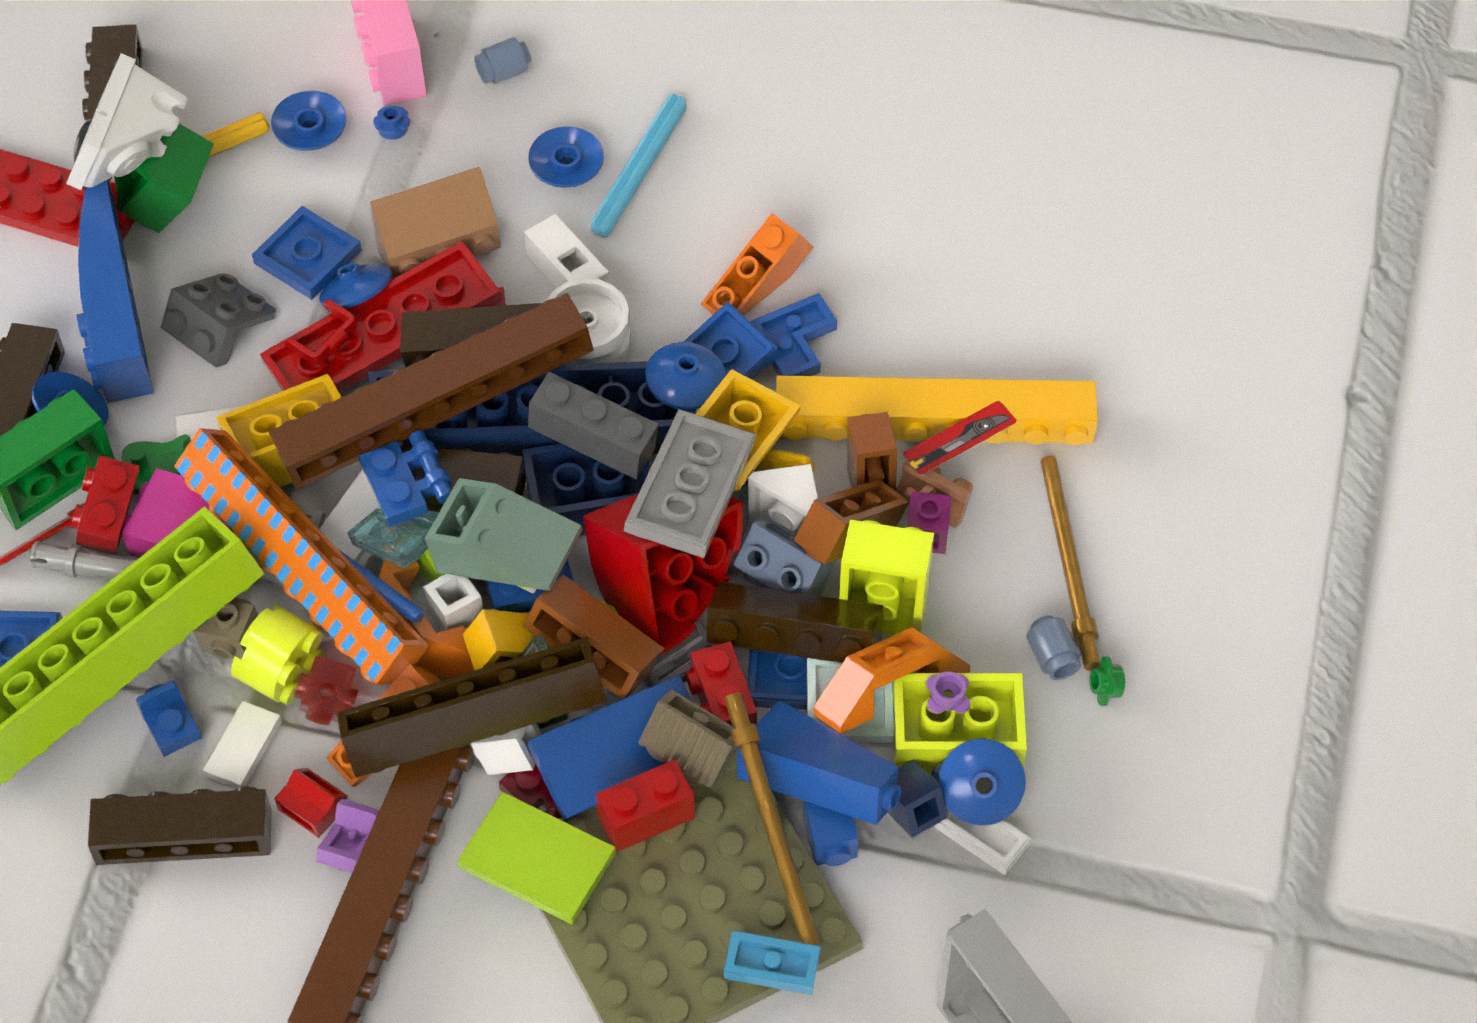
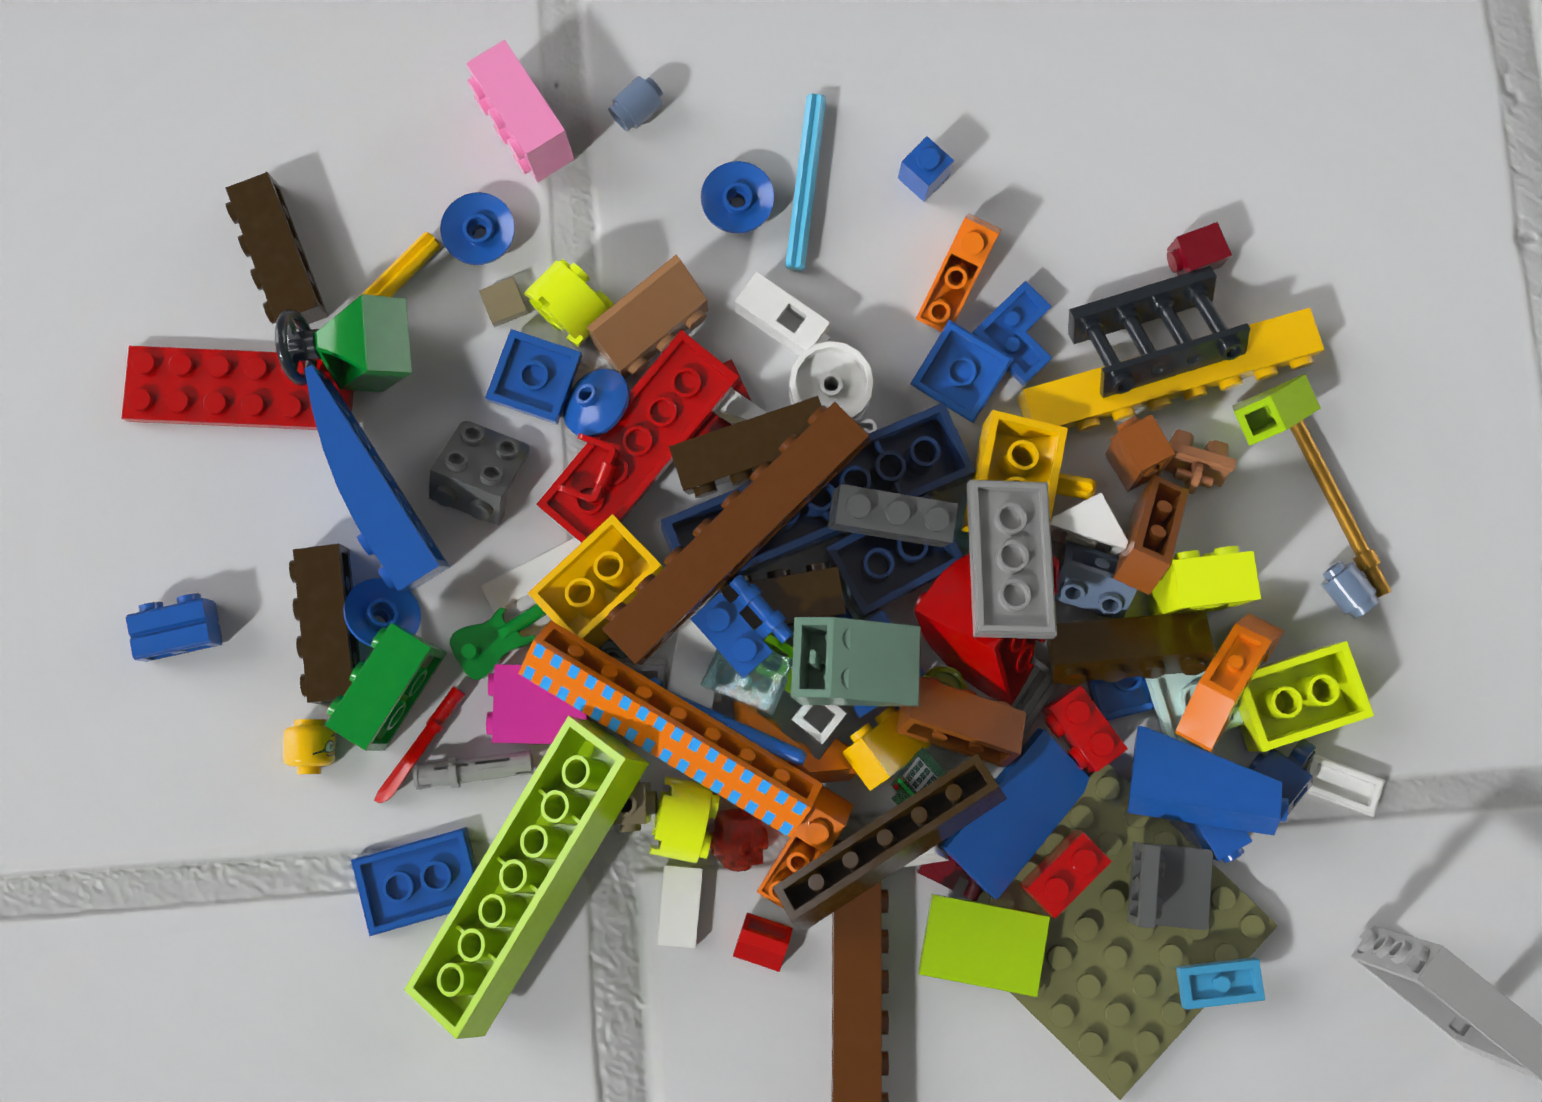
camera: 20 degrees left, 25 degrees up
(106, 506) = (465, 716): red brick -> none
(126, 125) = (323, 331): white piece -> none
(168, 718) = (605, 902): blue bracket -> none
(179, 826) = (660, 1007): dark brown brick -> none
(306, 188) = (503, 302): none -> dark tan tile
(347, 836) = (812, 972): medium lavender bracket -> none
(357, 183) = (567, 300): none -> neon yellow brick
(392, 122) = (555, 211): blue plate -> none
(683, 387) = (934, 434): blue dish -> none
(691, 737) = (1084, 799): dark tan brick -> none
(739, 855) = (1170, 886): none -> dark grey bracket
(746, 739) = (1144, 800): pearl gold bar -> none
(757, 178) = (925, 168): none -> blue brick
(931, 362) = (1149, 303): none -> black fence
(932, 515) = (1207, 498): magenta bracket -> none
(952, 683) = (1306, 687): medium lavender plate -> none
(959, 437) = (1209, 406): red sticker -> none
(976, 760) = (1339, 752): blue dish -> none
(1003, 314) = (1198, 250): none -> dark red brick
(1027, 460) = (1276, 409): none -> lime slope
(1107, 681) = (1404, 608): green plate -> none

